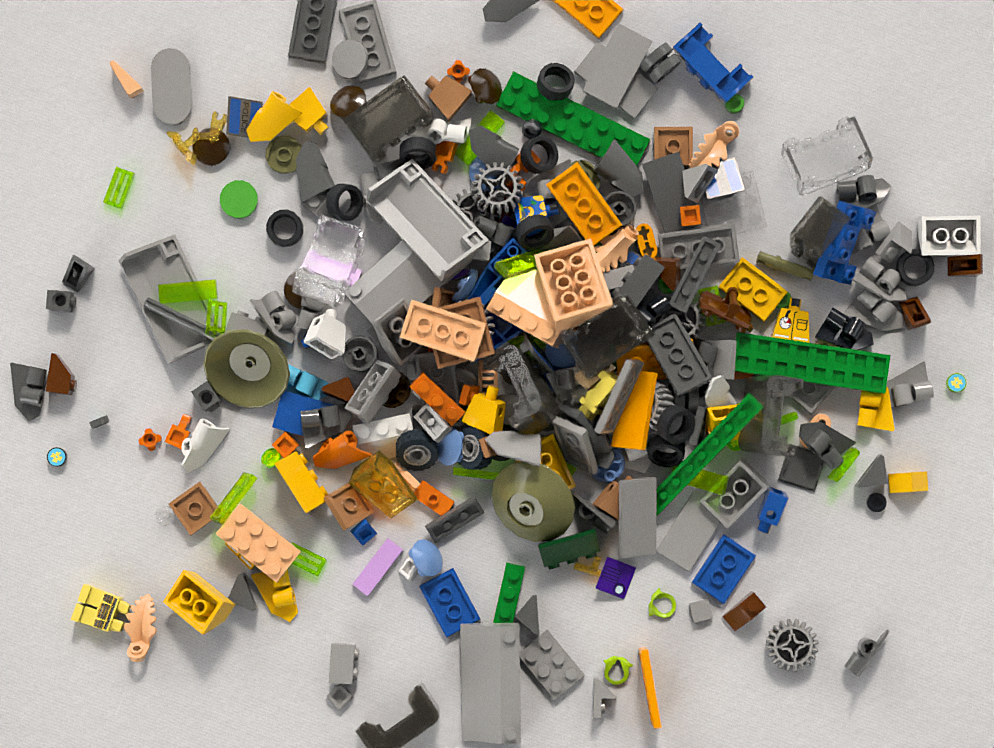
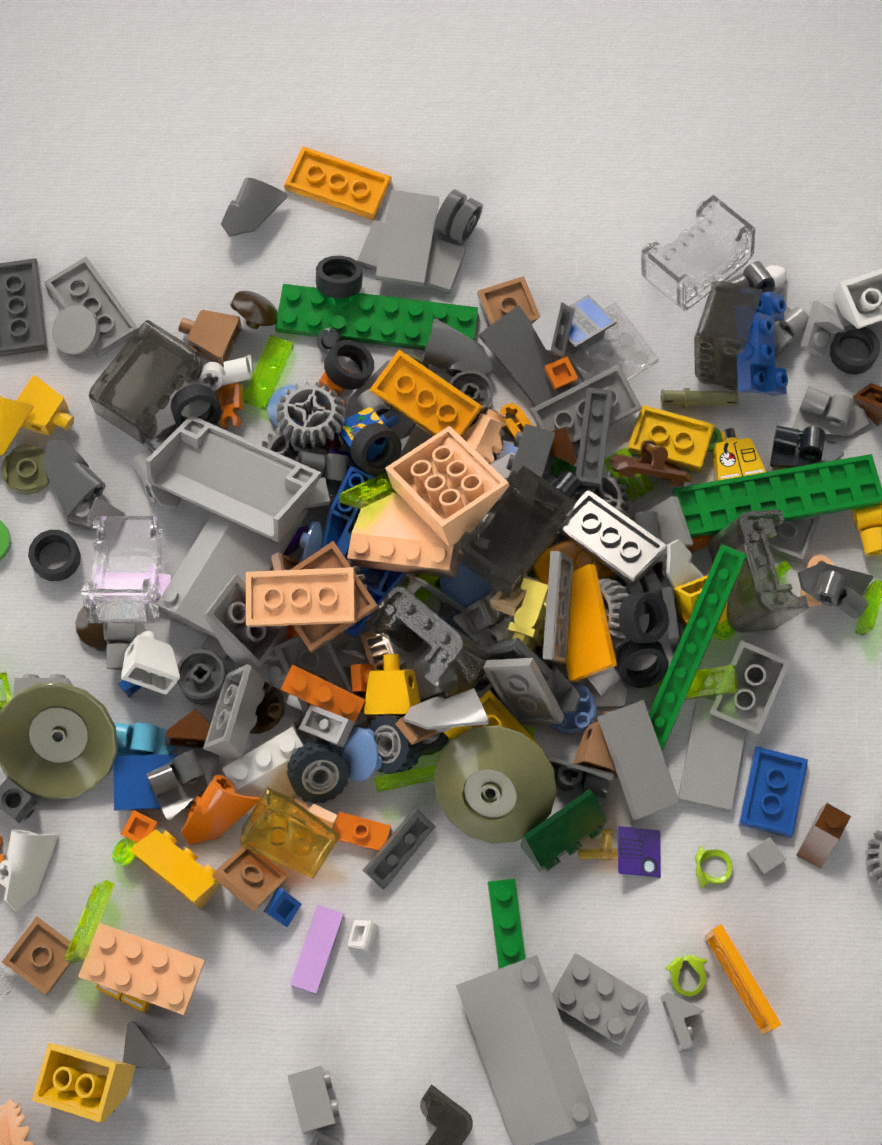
camera: 25 degrees left, 15 degrees down
(274, 315) = (82, 670): light grey panel -> none
(277, 595) = (191, 1035): yellow panel -> none
(319, 566) = (223, 963): clear neon green tile -> none
(333, 197) = (132, 484): black tyre -> none
(347, 101) = (84, 378): dark brown dish -> none
(426, 558) = (378, 911): medium blue dish -> none
(449, 602) = (430, 963): blue tile -> none
(458, 66) = (215, 298): orange plate -> none
(491, 147) = (282, 371): dark grey panel -> none
(529, 615) = (544, 941): dark grey slope -> none
(708, 67) = (518, 206): blue bracket -> none
(715, 145) = (560, 284): light nougat plant -> none
(735, 104) = (563, 238): bright green tile -> none
(775, 501) = (804, 679): blue torso -> none
(802, 469) = (819, 632): dark grey piece -> none
(880, 282) = (811, 375): light grey panel -> none

